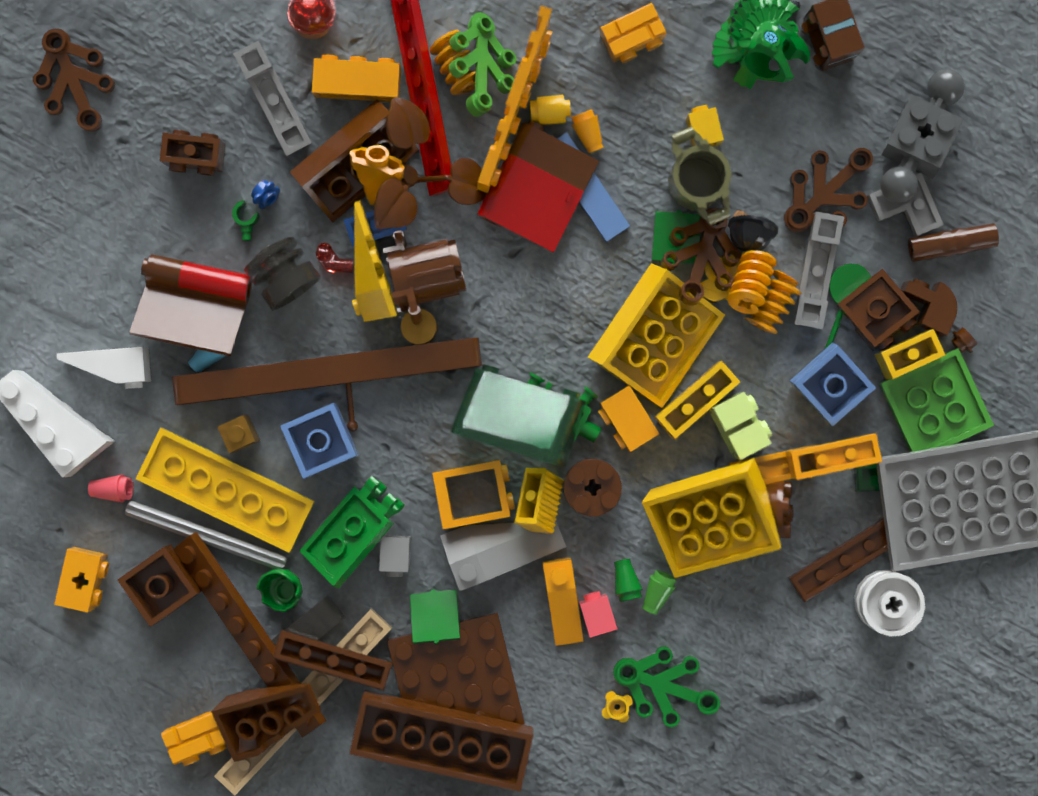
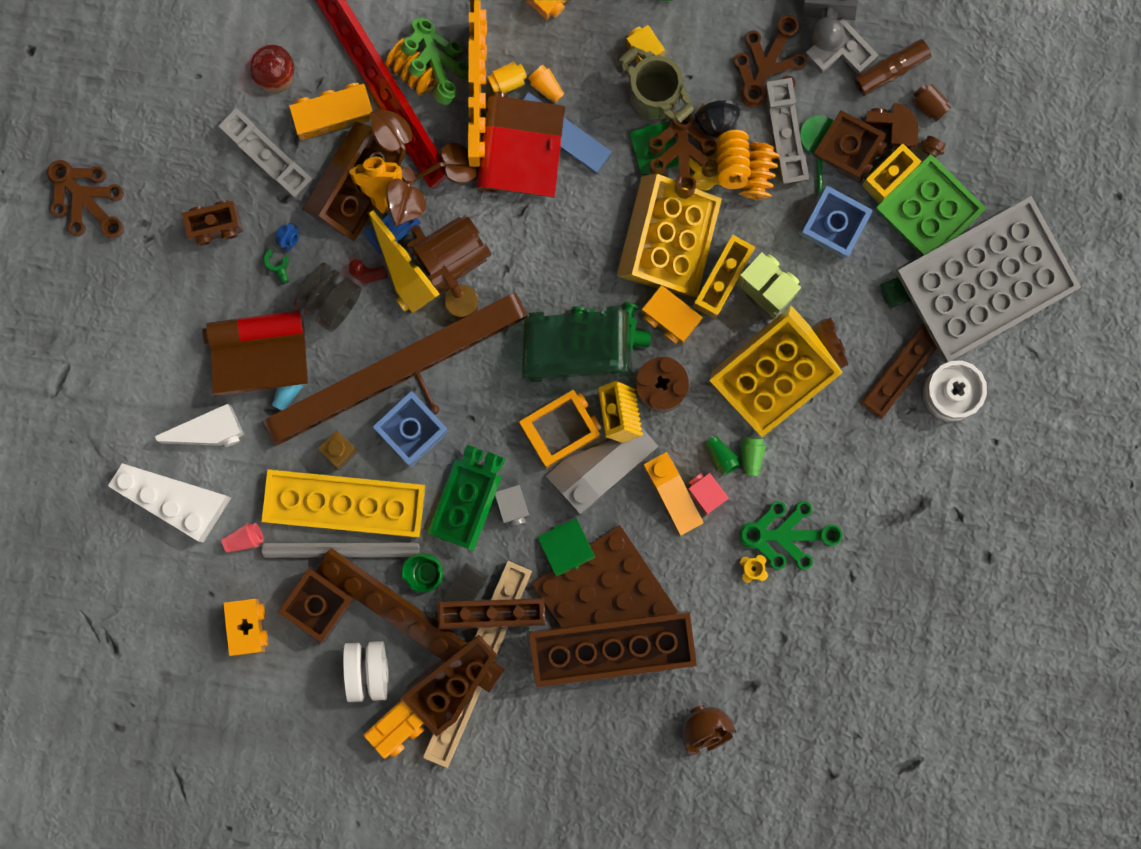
camera: 25 degrees left, 5 degrees down
(185, 671) = (364, 671): none -> white wheel
(818, 459) = (848, 287): light orange bracket -> none
(979, 293) = (931, 102): none -> reddish brown brick

